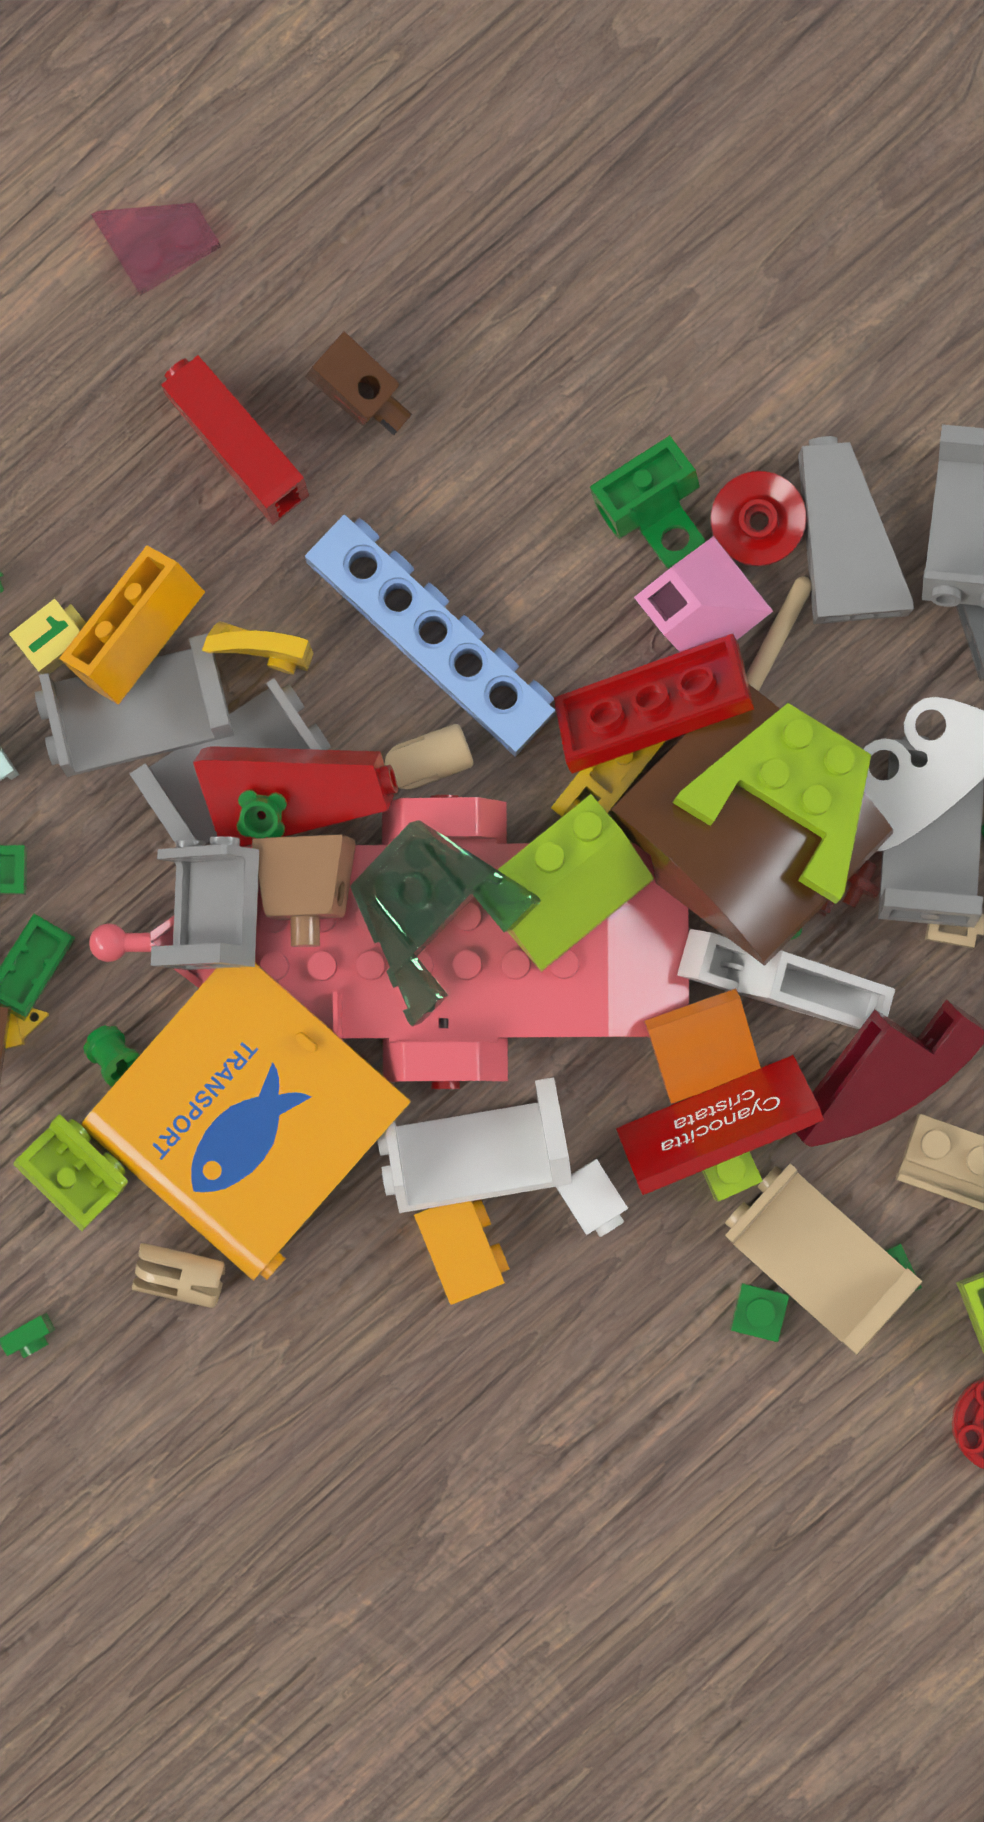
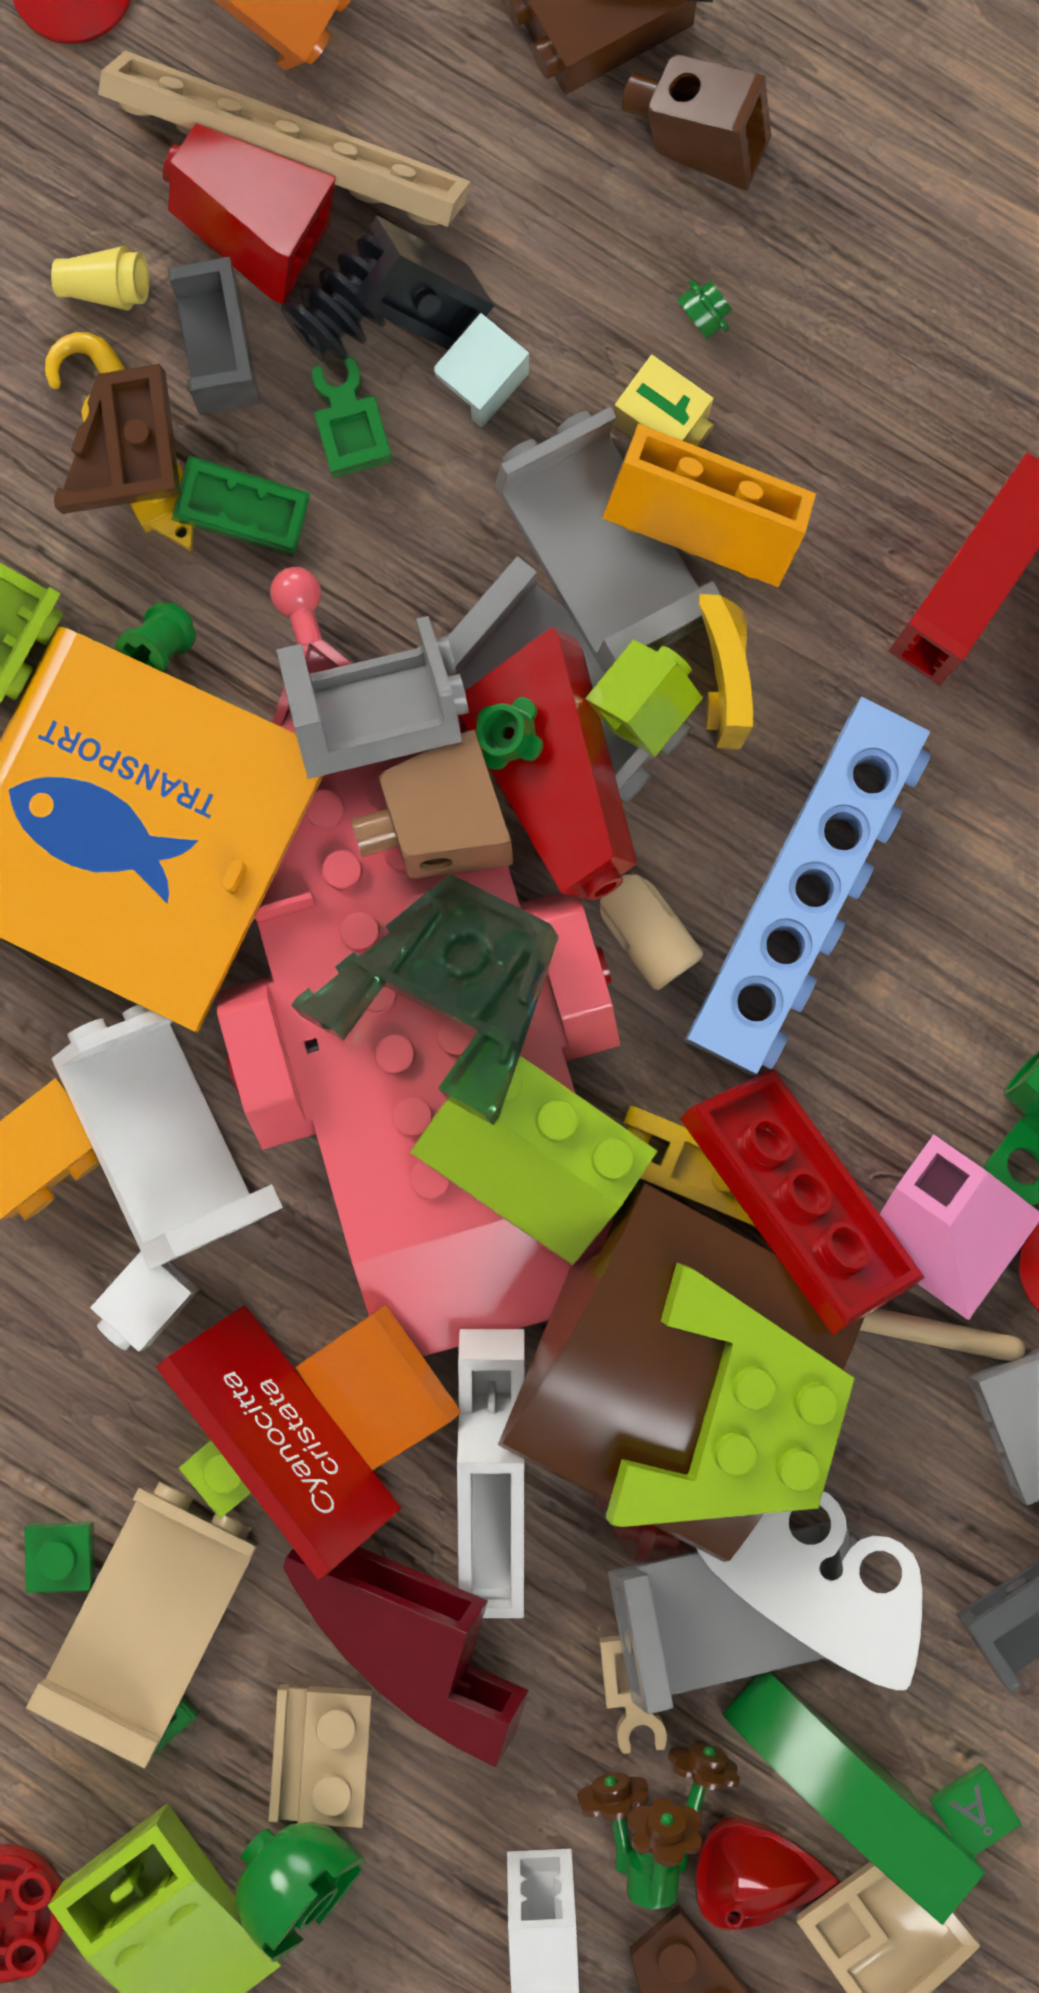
camera: 75 degrees right, 0 degrees up
(260, 710) = (645, 696): none -> lime brick

